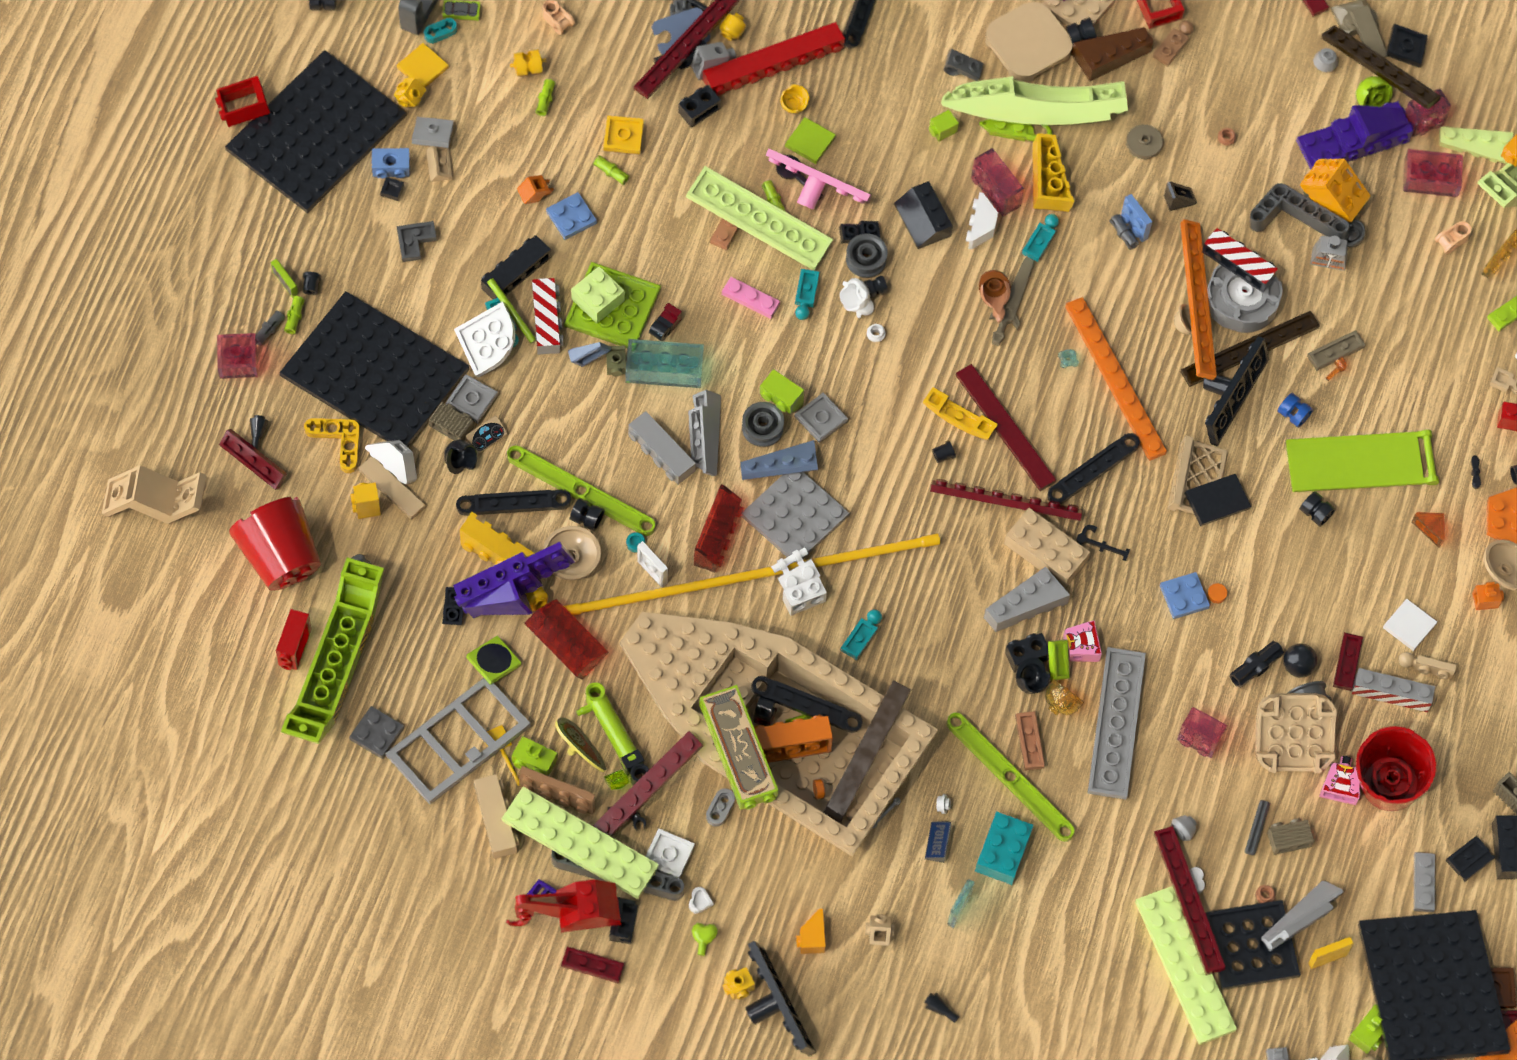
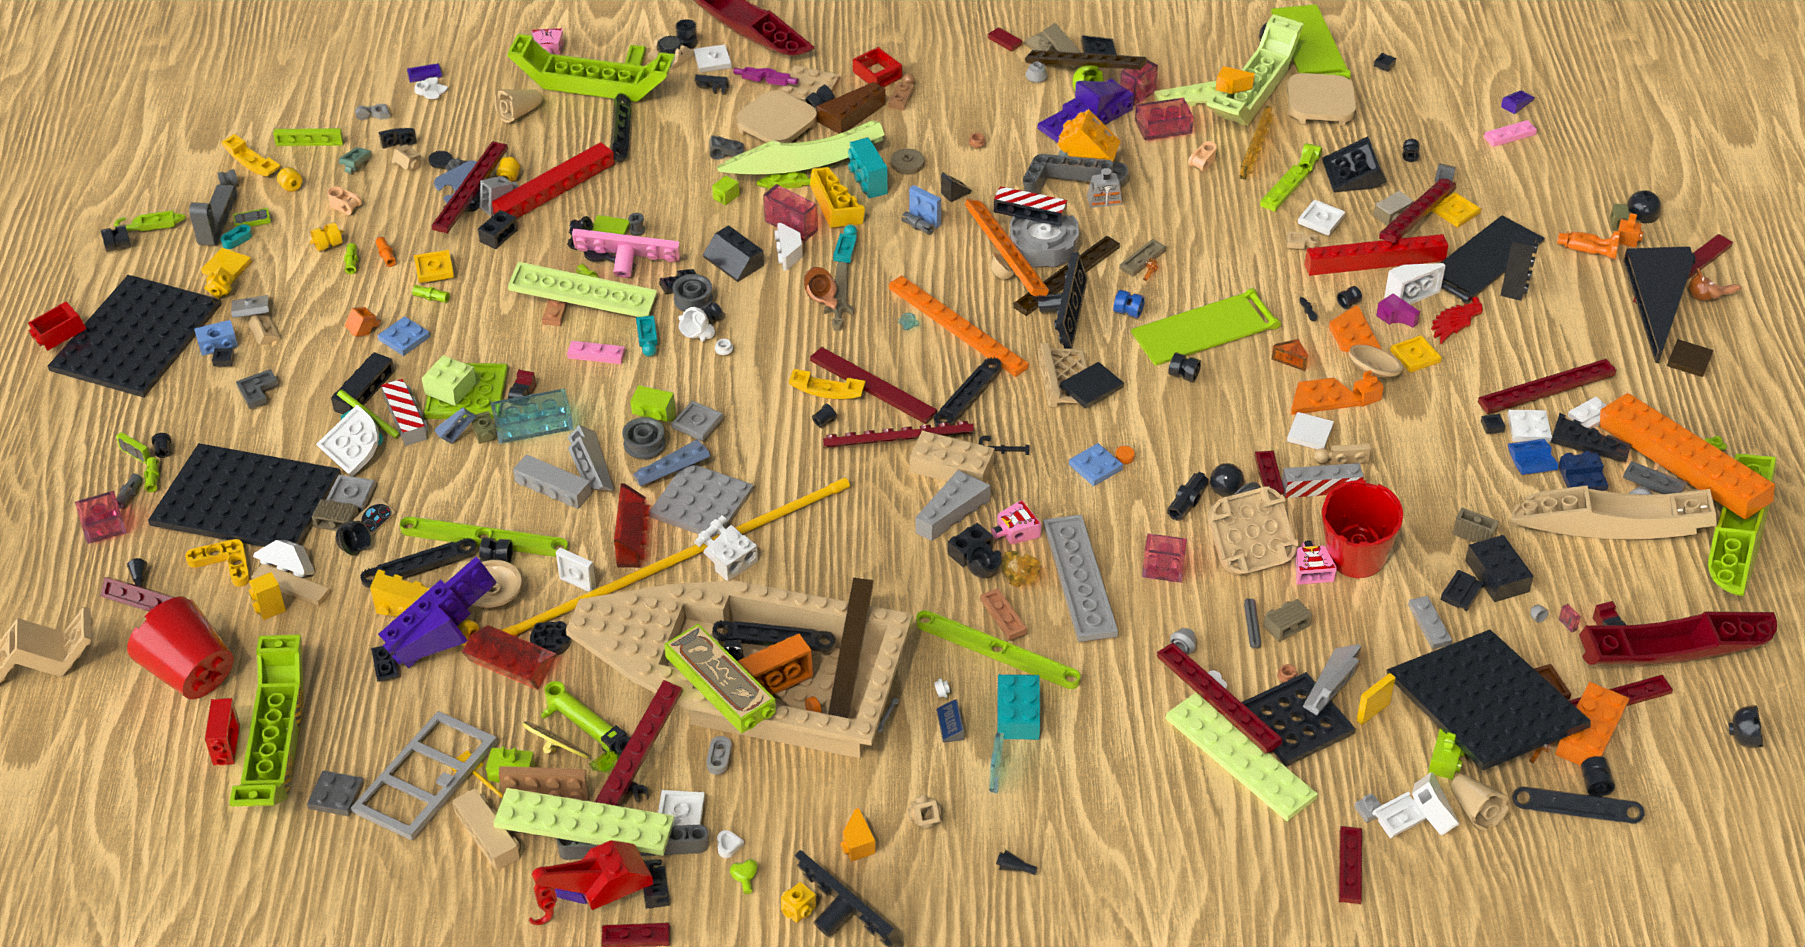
camera: 15 degrees left, 20 degrees down
(493, 660) = (440, 695): tile -> none
(581, 99) = (385, 251): none -> orange pin
(609, 627) = (551, 636): none -> black tile
(633, 540) = (550, 563): teal tile -> none
(779, 134) = (583, 224): none -> black connector
(794, 99) = (584, 203): yellow hair -> none
(839, 143) = (636, 221): none -> dark grey bush
(862, 634) = (805, 573): teal plate -> none
(1058, 659) = (1001, 536): lime tile -> none
(1097, 145) = (868, 168): none -> teal brick
(1440, 585) = (1322, 396): none -> orange wing

